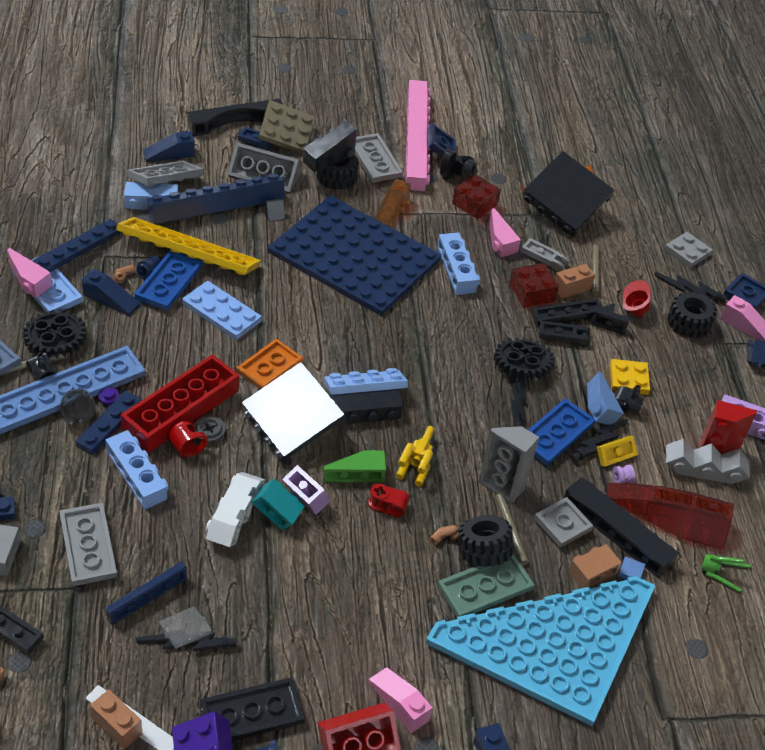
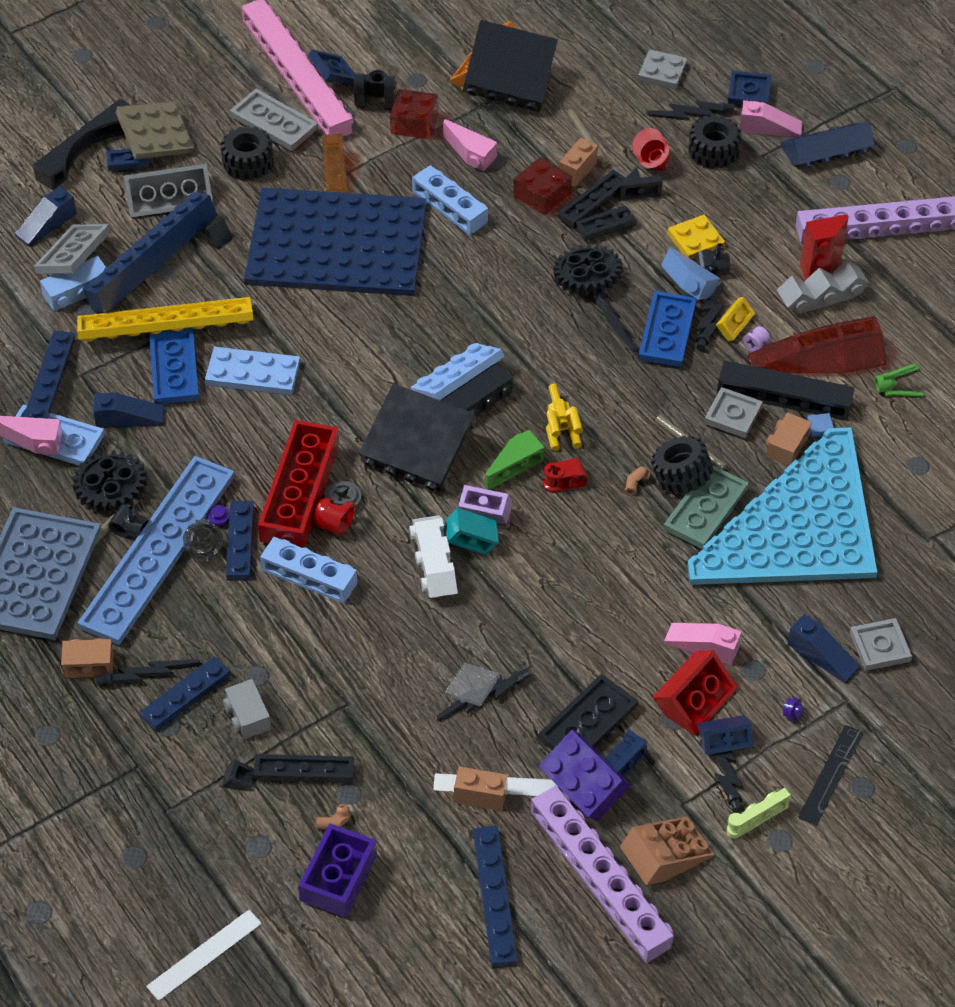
camera: 25 degrees left, 5 degrees up
(88, 544) = (323, 660): light grey plate -> none
(121, 273) = (117, 383): nougat arm -> none
(146, 593) = (415, 673): dark blue tile -> none
(147, 266) = (140, 364): dark blue cone -> none
(269, 364) = (347, 402): orange tile -> none
(332, 148) = (237, 134): black wedge -> none
(508, 461) = (655, 380): light grey slope -> none
(545, 255) = (528, 146): light grey hinge -> none

